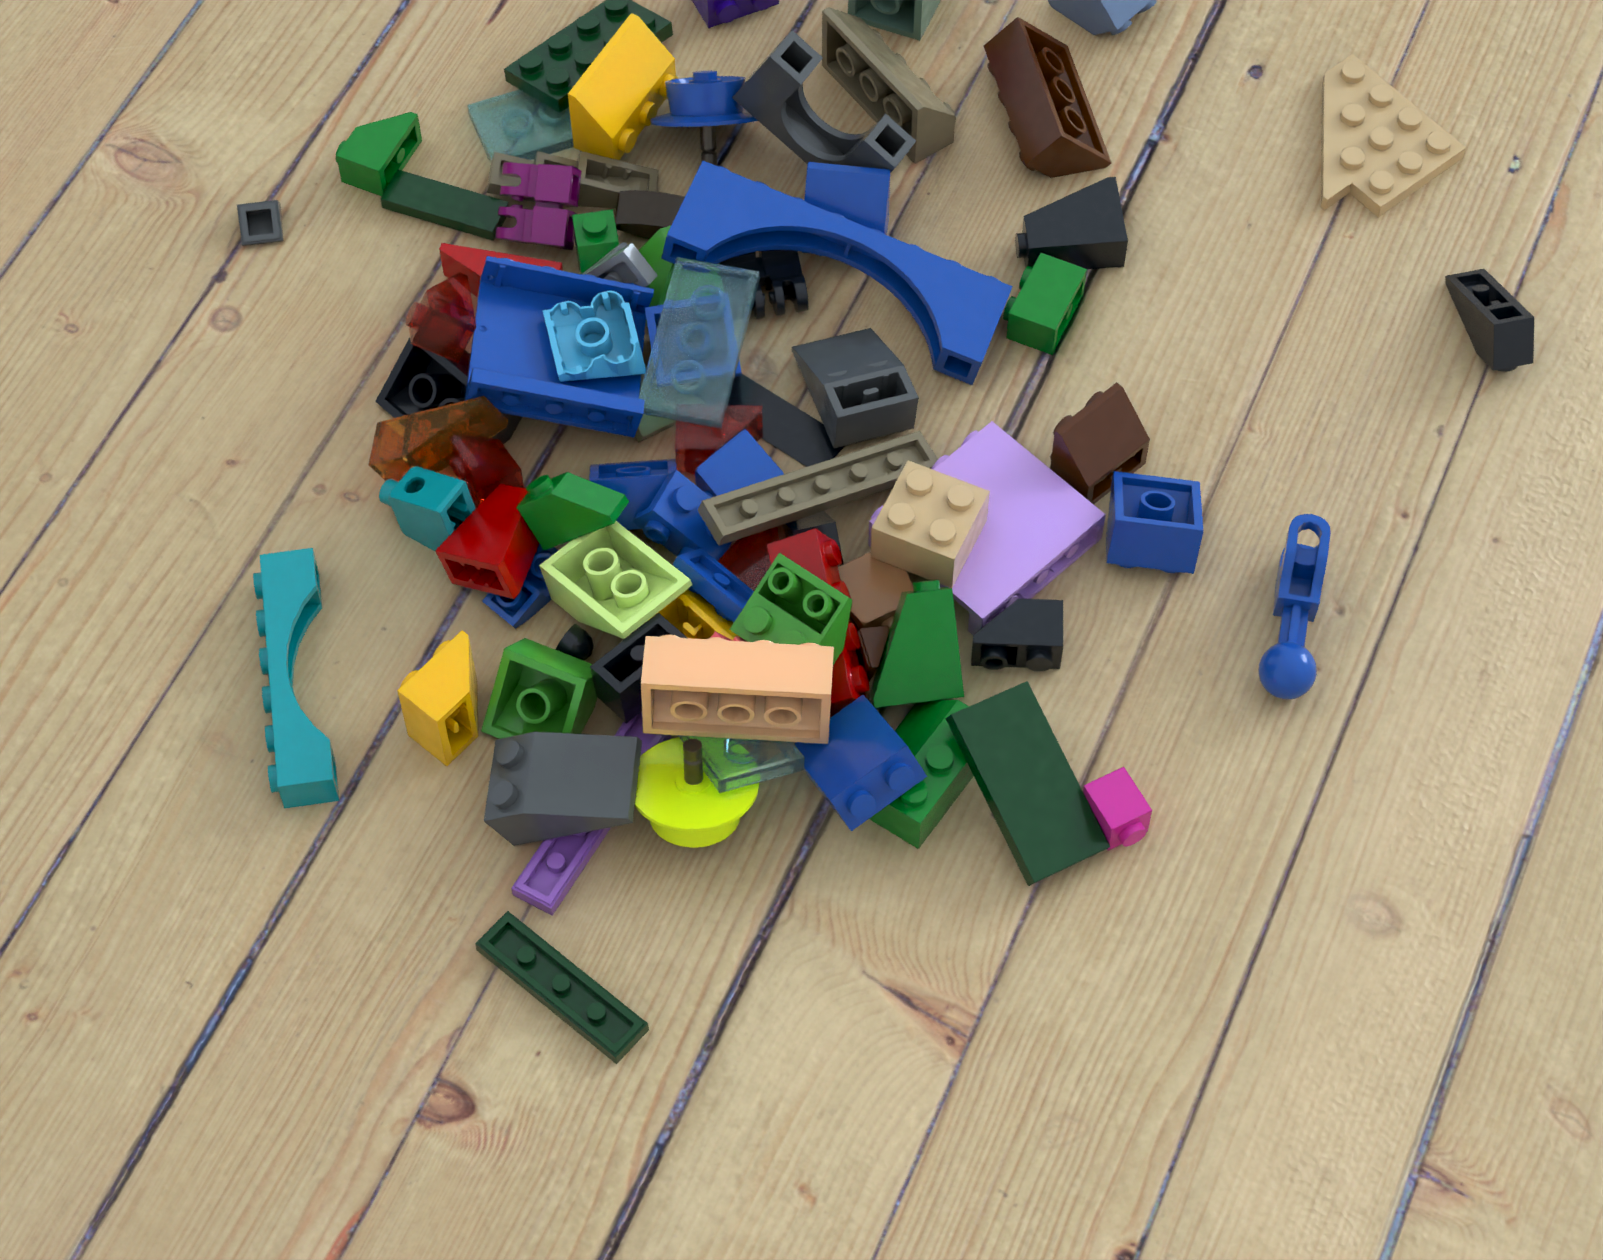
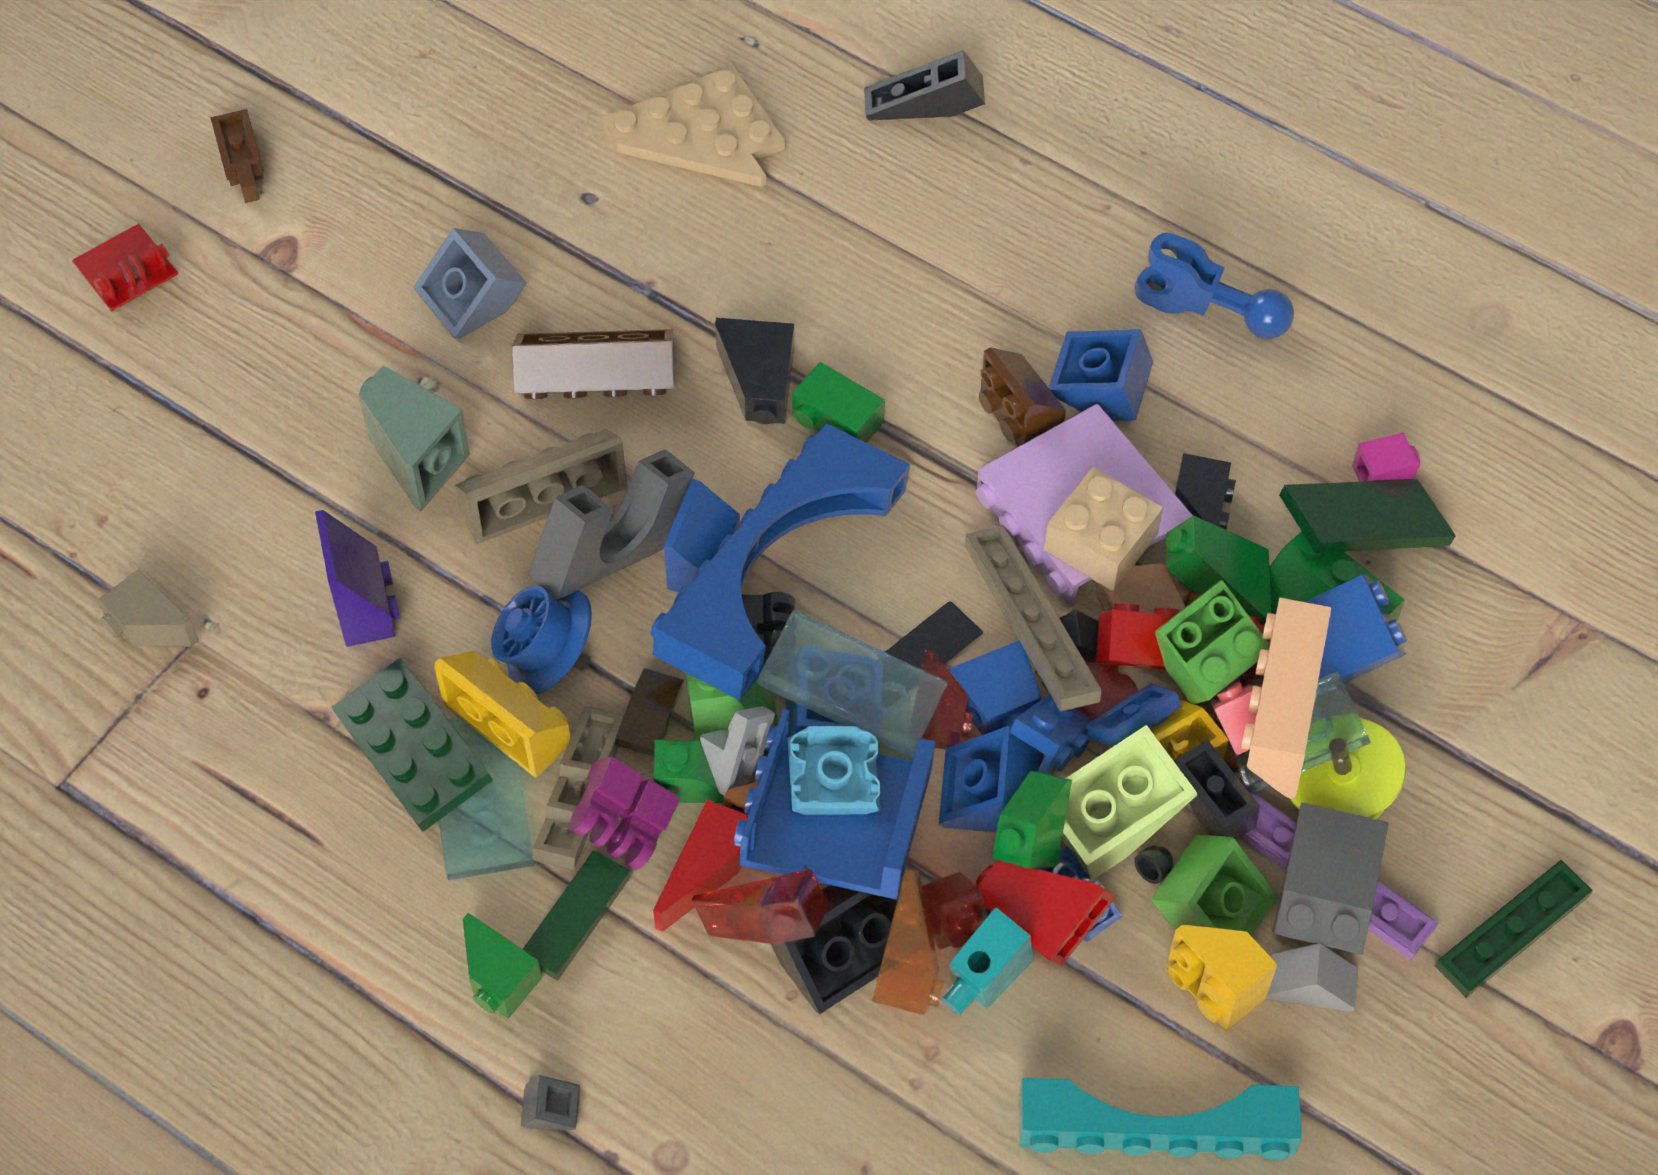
camera: 80 degrees left, 0 degrees up
(464, 803) = (1314, 978): none -> light grey slope
(857, 387) = (901, 573): dark grey slope -> none

